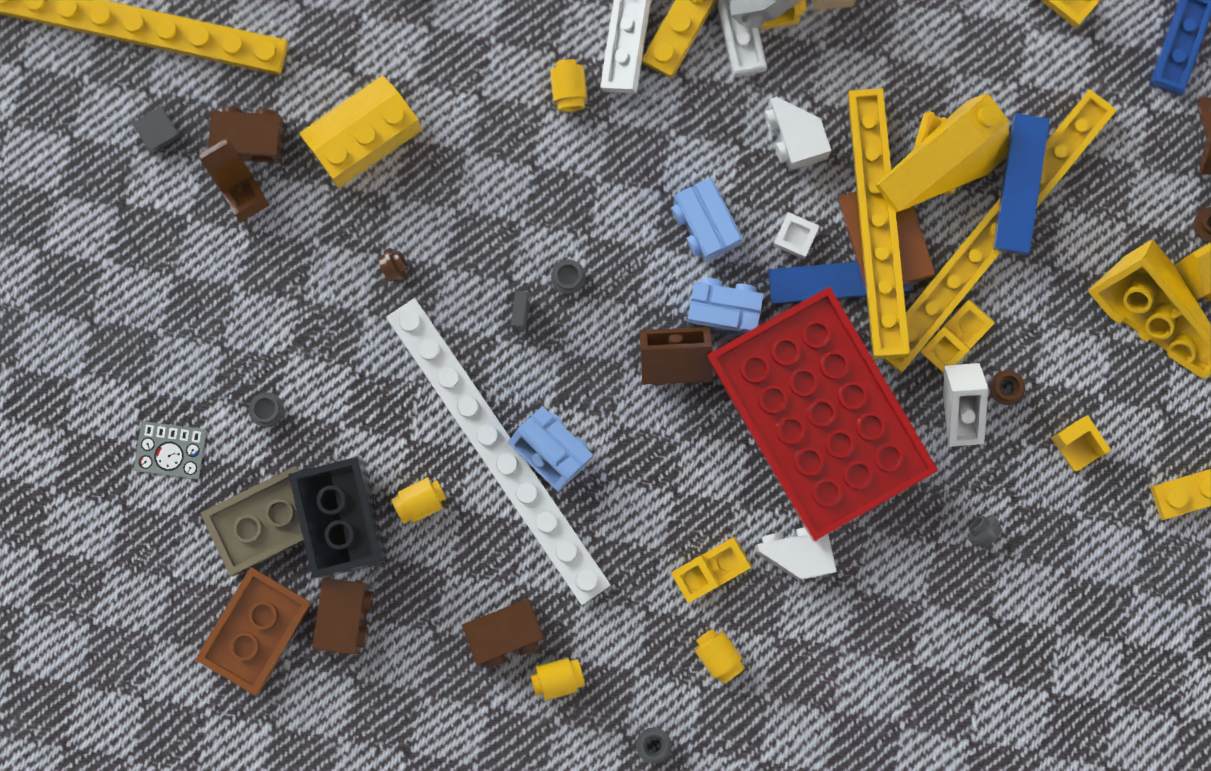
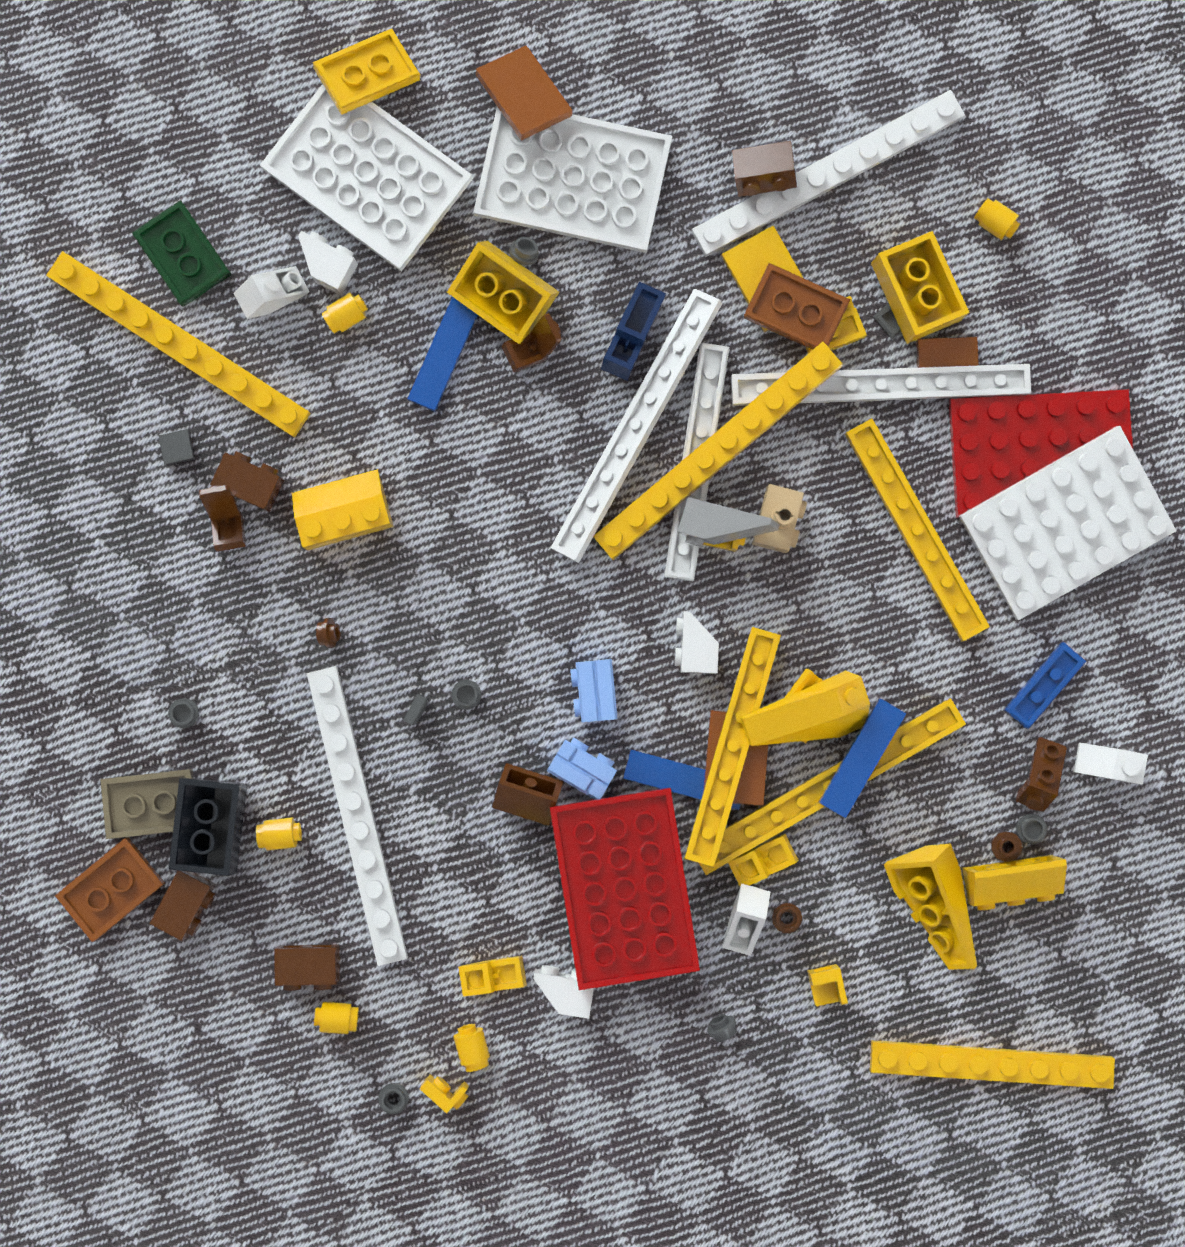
camera: 20 degrees right, 5 degrees up
(170, 450) = (95, 716): sticker -> none
(550, 448) = (399, 832): light blue brick -> none
(568, 85) = (525, 536): yellow brick -> none
(701, 716) = (438, 1091): none -> yellow bracket
(796, 235) = (663, 730): white plate -> none

